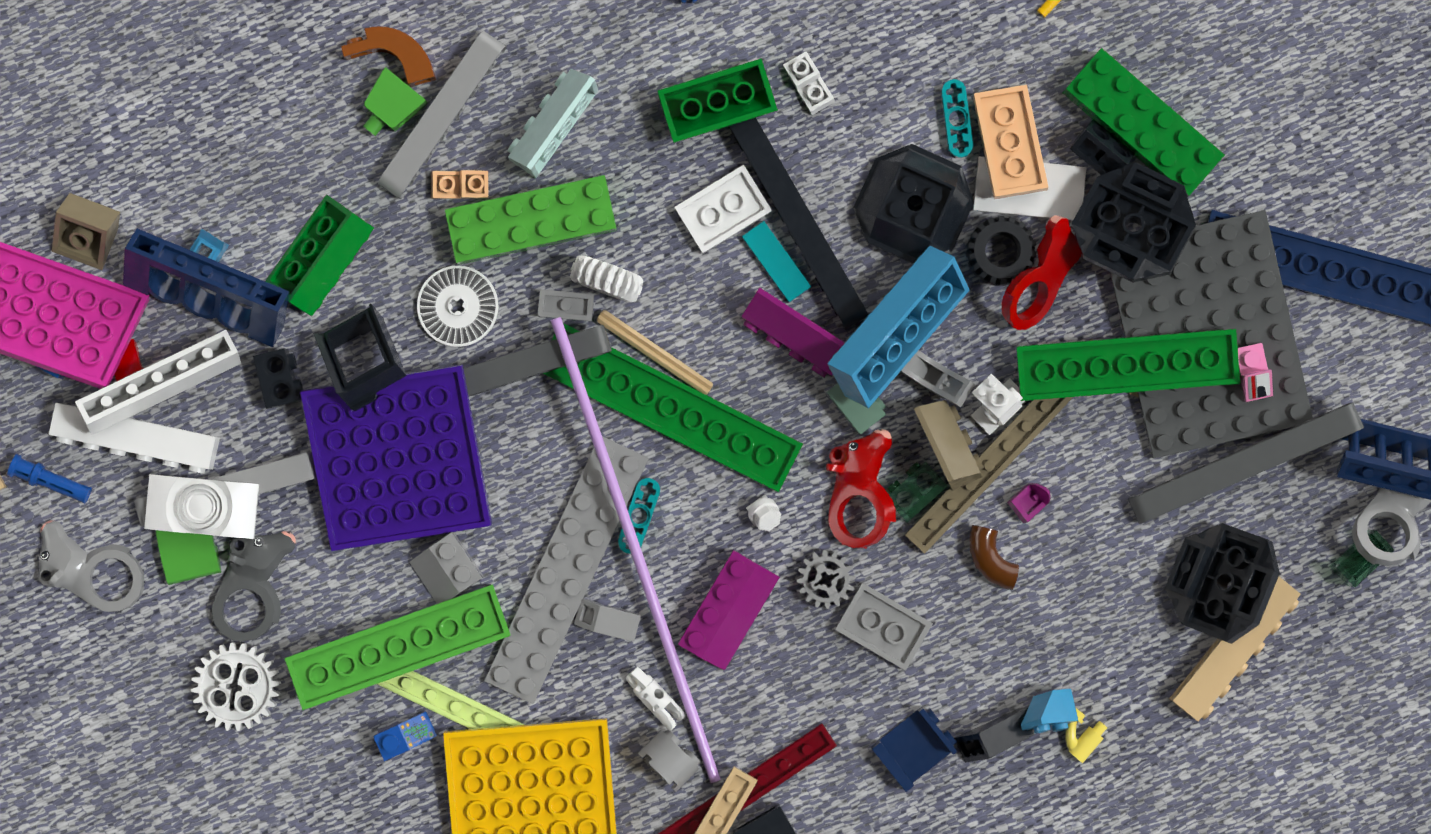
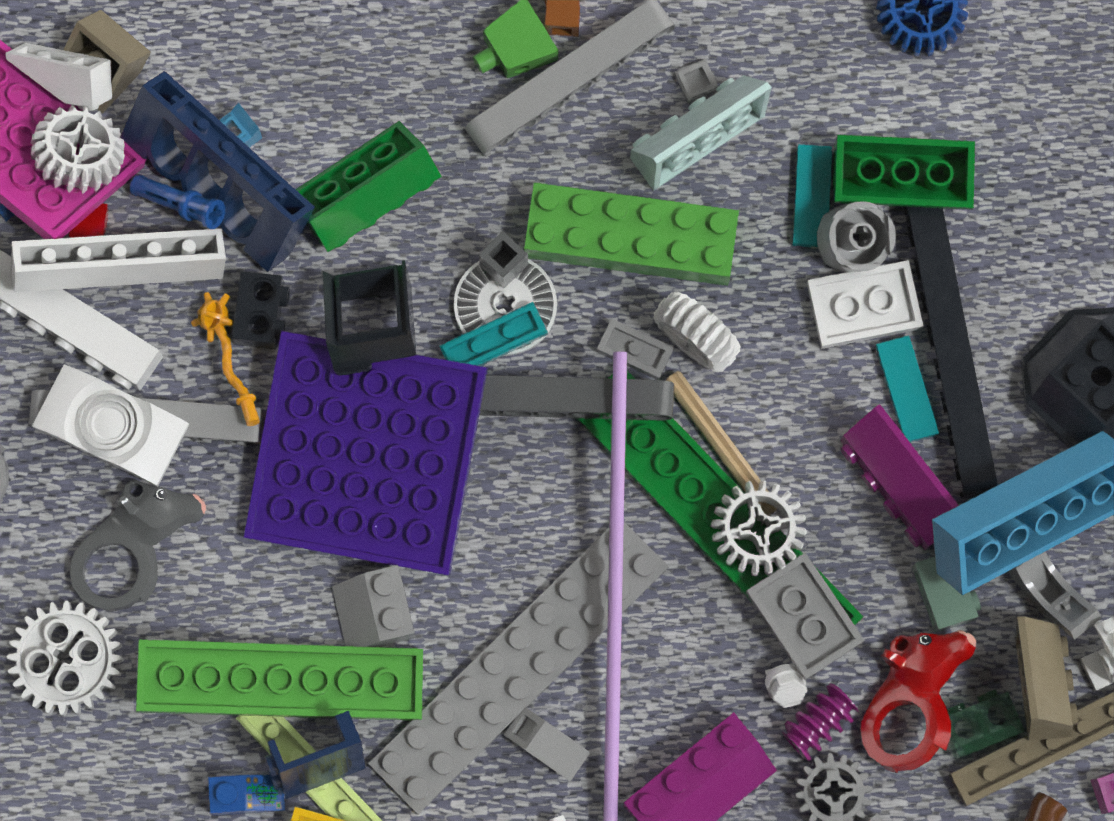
camera: 25 degrees right, 10 degrees down
(64, 253) = (67, 75): none -> white slope
(116, 303) = (99, 151): none -> white gear
(187, 555) = (69, 479): bright green slope -> none
(194, 320) = (188, 204): none -> blue pin
(246, 396) = (213, 318): none -> light orange piece
(443, 276) = (503, 259): none -> dark grey brick
(450, 700) = (319, 766): none -> dark blue panel
(459, 184) = (560, 165): light nougat slope -> none
(459, 336) = (496, 337): none -> teal tile
(537, 82) = (696, 80): none -> light grey tile
(652, 498) = (654, 617): teal beam -> none
(655, 139) = (811, 192): none -> teal tile
(691, 388) = (773, 525): none -> white gear
(711, 170) = (859, 218): none -> light grey brick
(760, 460) = (805, 616): none -> light grey plate
(798, 532) = (819, 720): none -> magenta piece
(808, 83) = (1019, 195): white slope -> none

